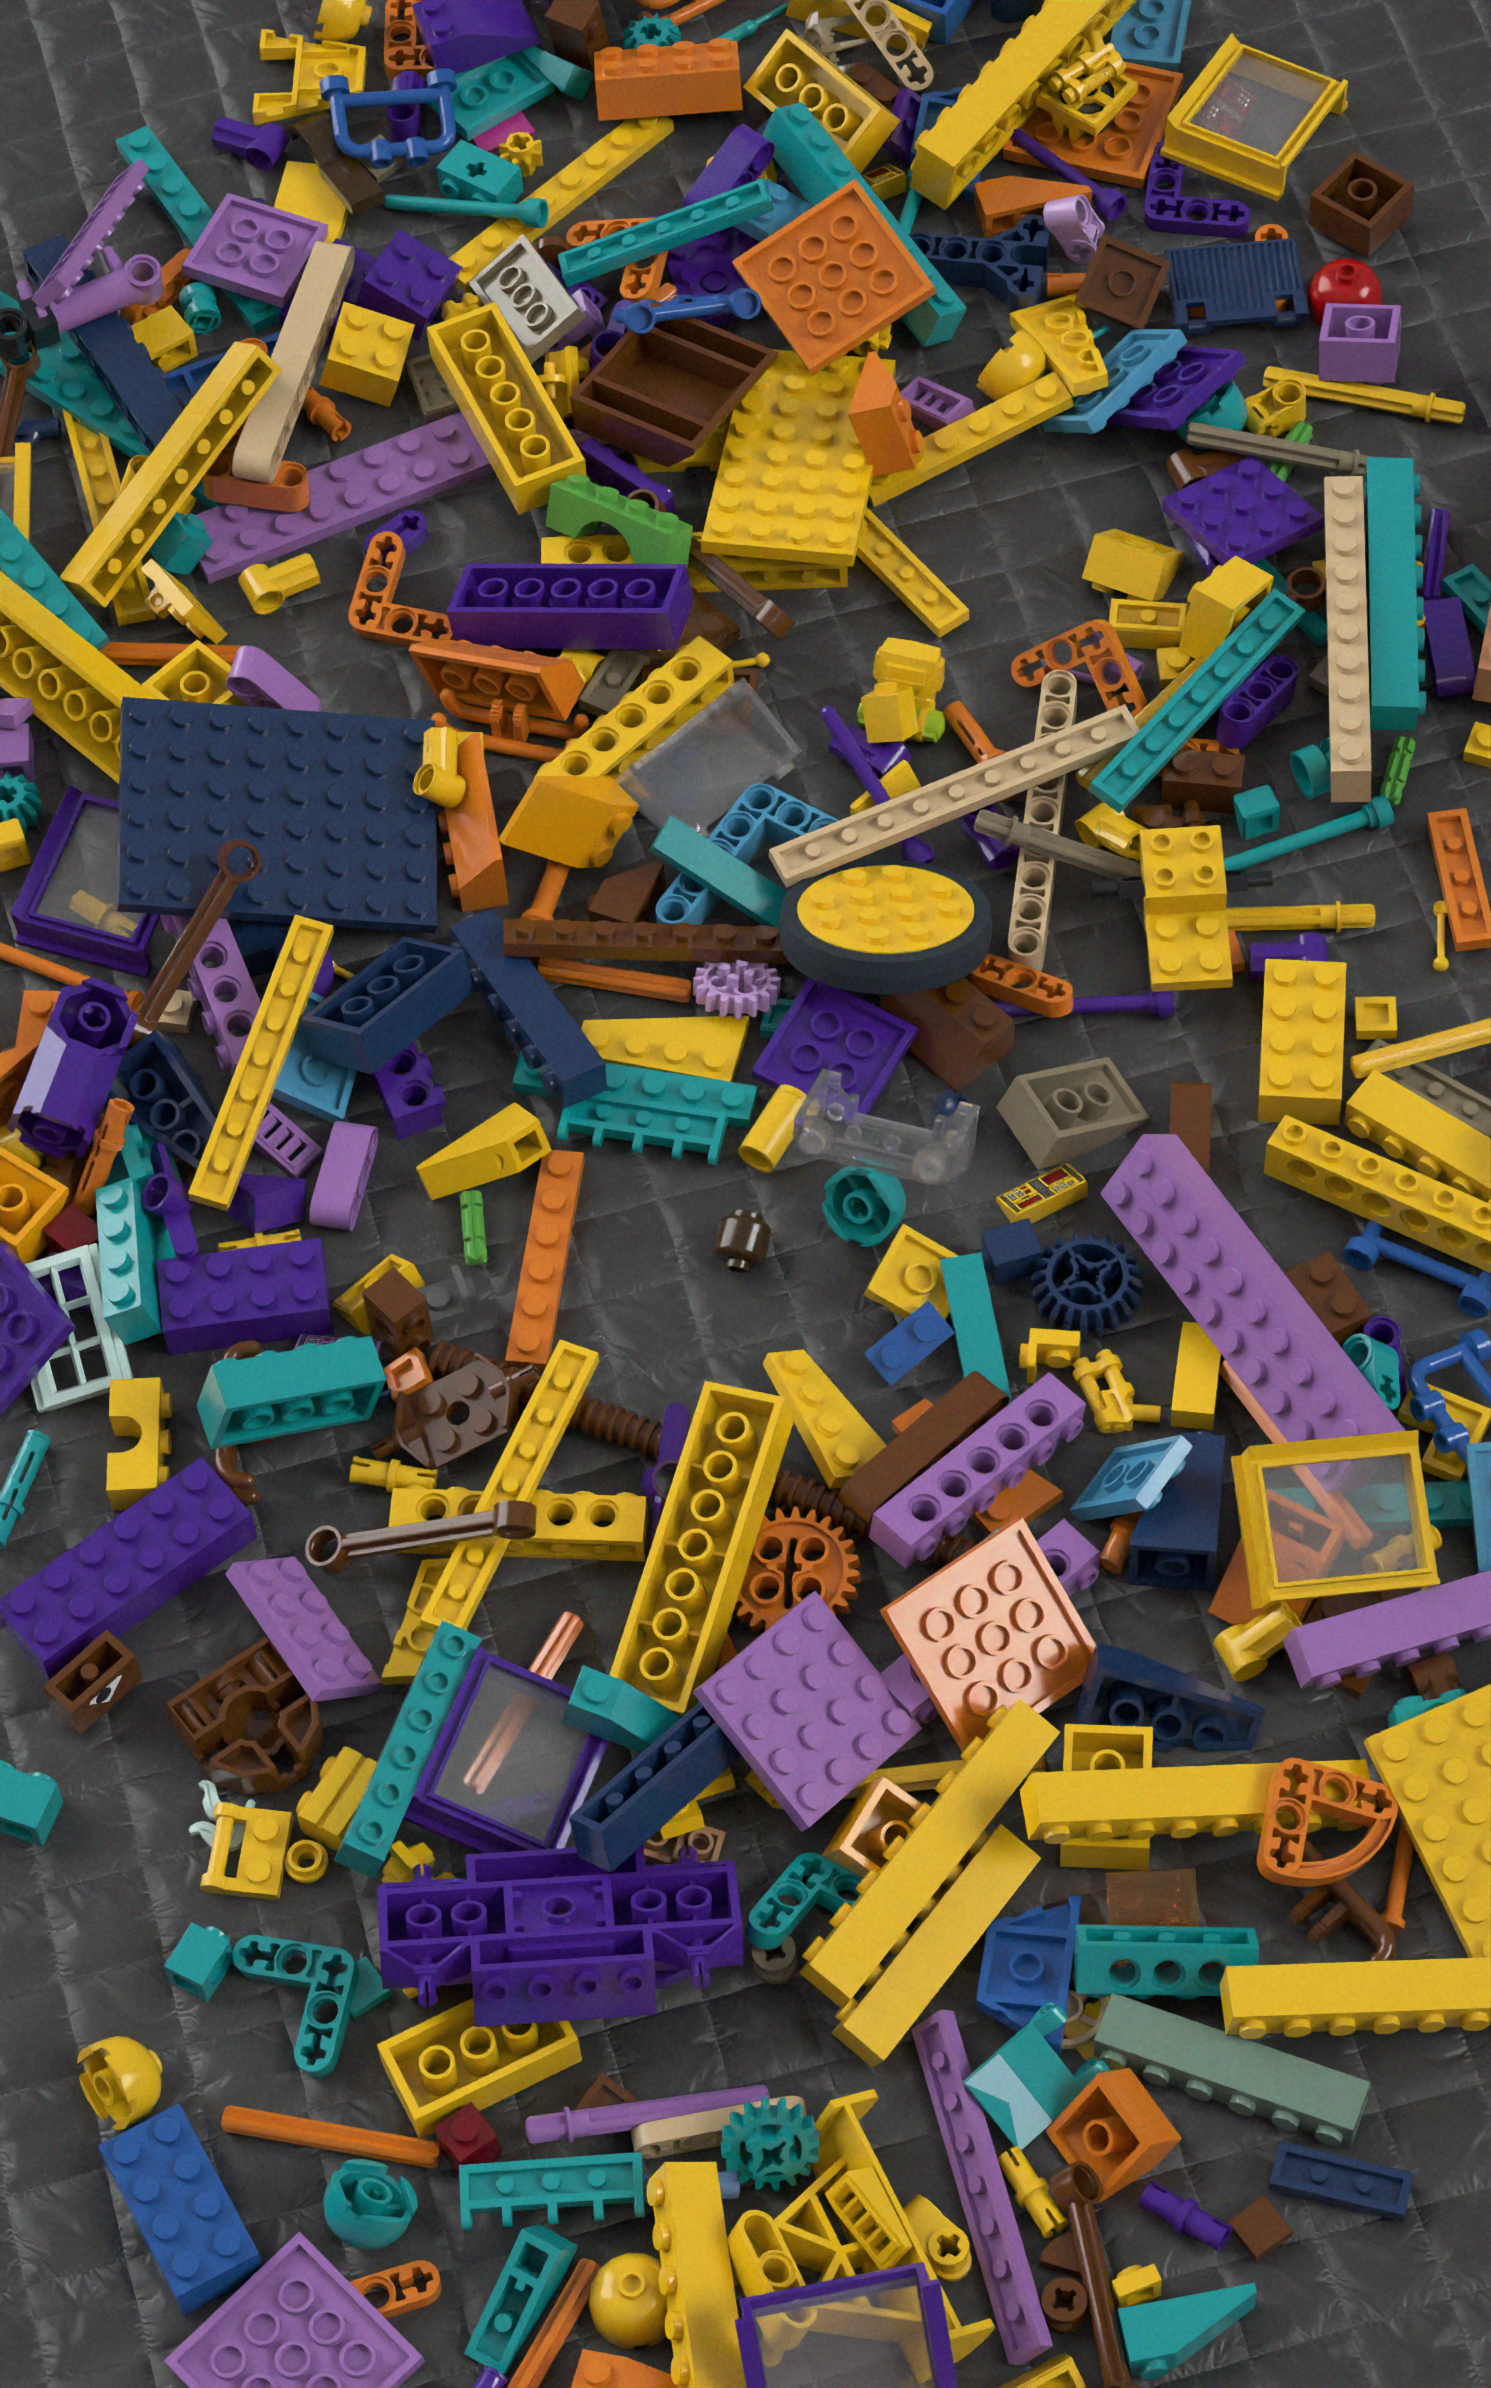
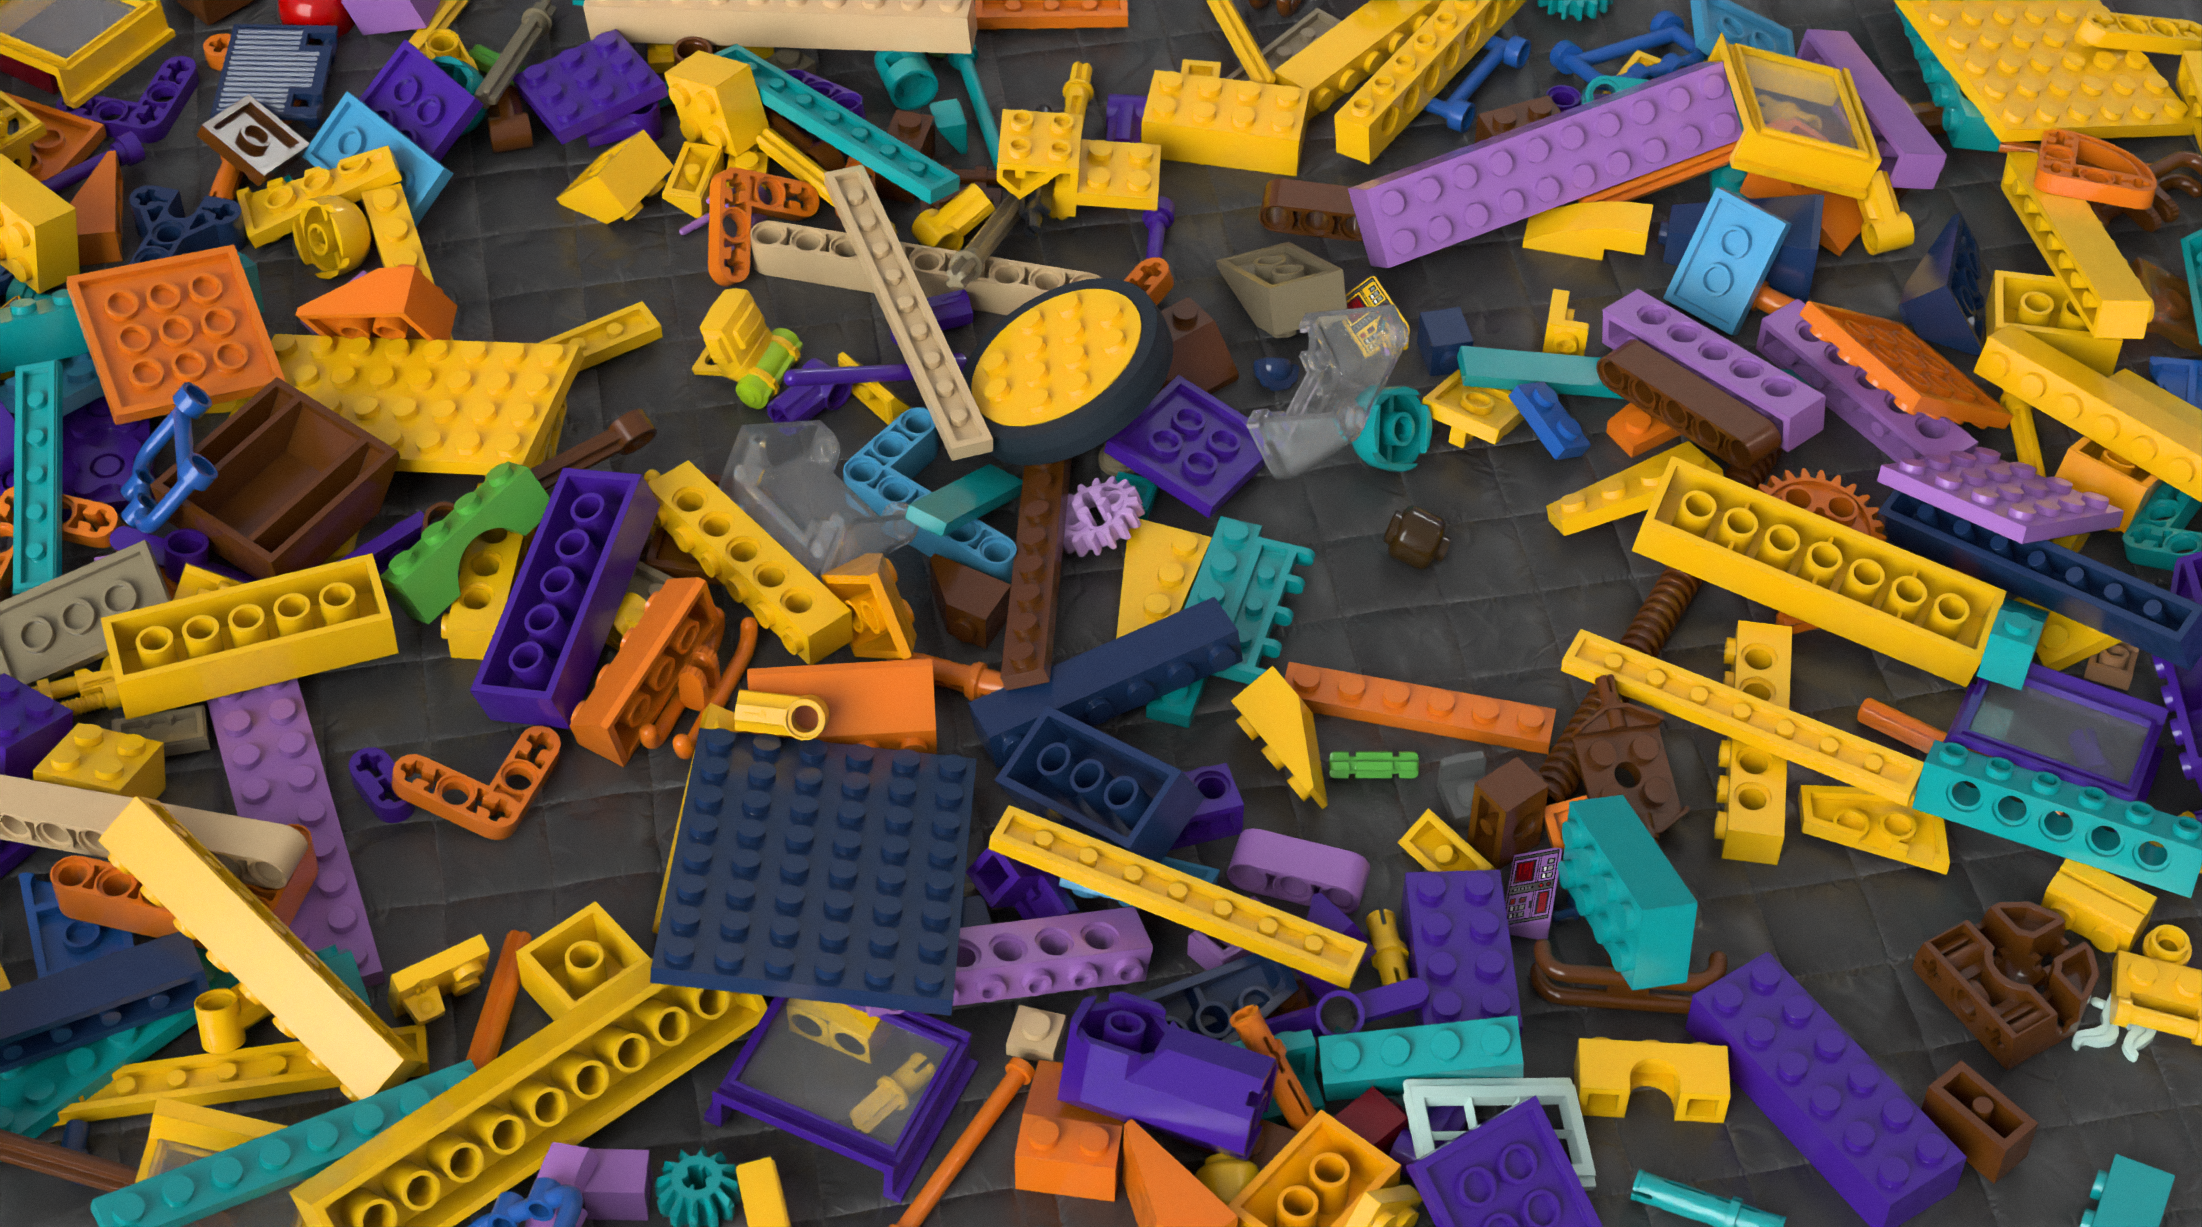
camera: 90 degrees left, 10 degrees down
(192, 940) = (929, 871): reddish brown piece -> none
(266, 684) = (616, 882): medium lavender beam -> none
(270, 586) = (419, 901): yellow piece -> none
(304, 1628) = (1899, 921): medium lavender plate -> none
(391, 1474) = (1694, 845): yellow pin -> none
(506, 1520) = (1813, 690): reddish brown piece -> none
(615, 979) = (1071, 603): orange axle -> none
(673, 1437) = (1705, 610): dark purple piece -> none
(772, 1130) = (1278, 503): yellow pin -> none
(889, 713) = (784, 346): yellow brick -> none
(972, 735) = (841, 307): orange pin -> none
(1074, 226) = (158, 165): lavender piece -> none
(1082, 1298) = (1491, 289): dark blue gear -> none
(1111, 1407) = (1605, 287): yellow piece -> none
(1440, 963) = (1138, 37): yellow hinge -> none

